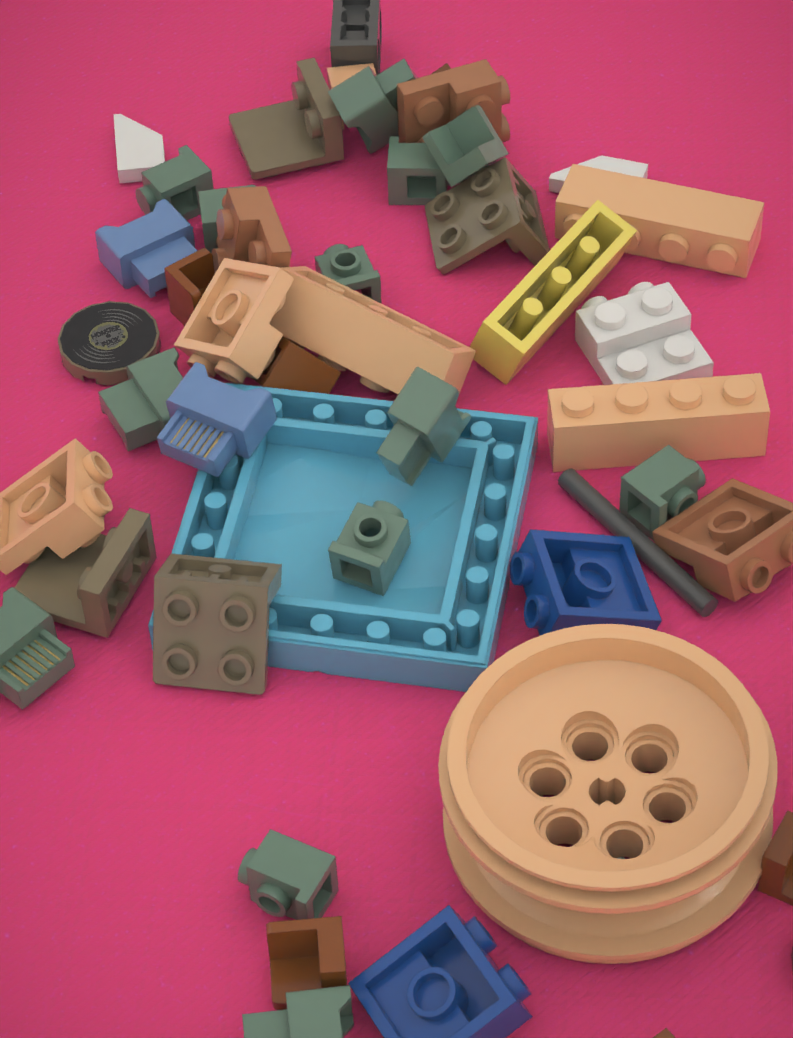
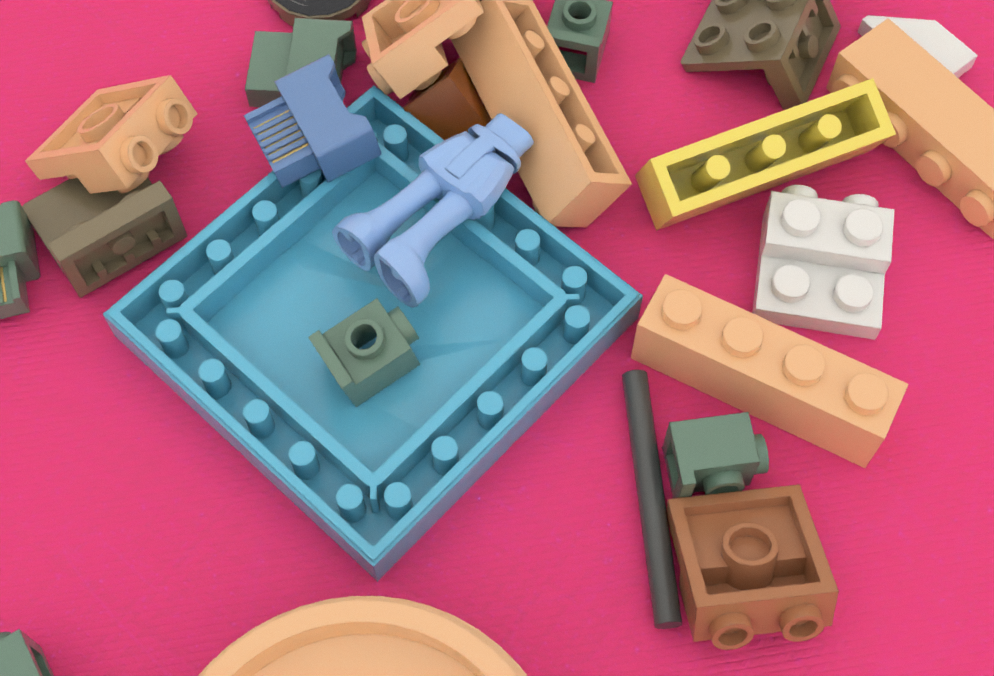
camera: 30 degrees right, 15 degrees up
(213, 623) = (155, 337): dark tan bracket -> none
(352, 400) = (466, 178): none -> light blue piece
(423, 426) = (492, 249): sand green piece -> none
(581, 581) = (547, 526): blue plate -> none

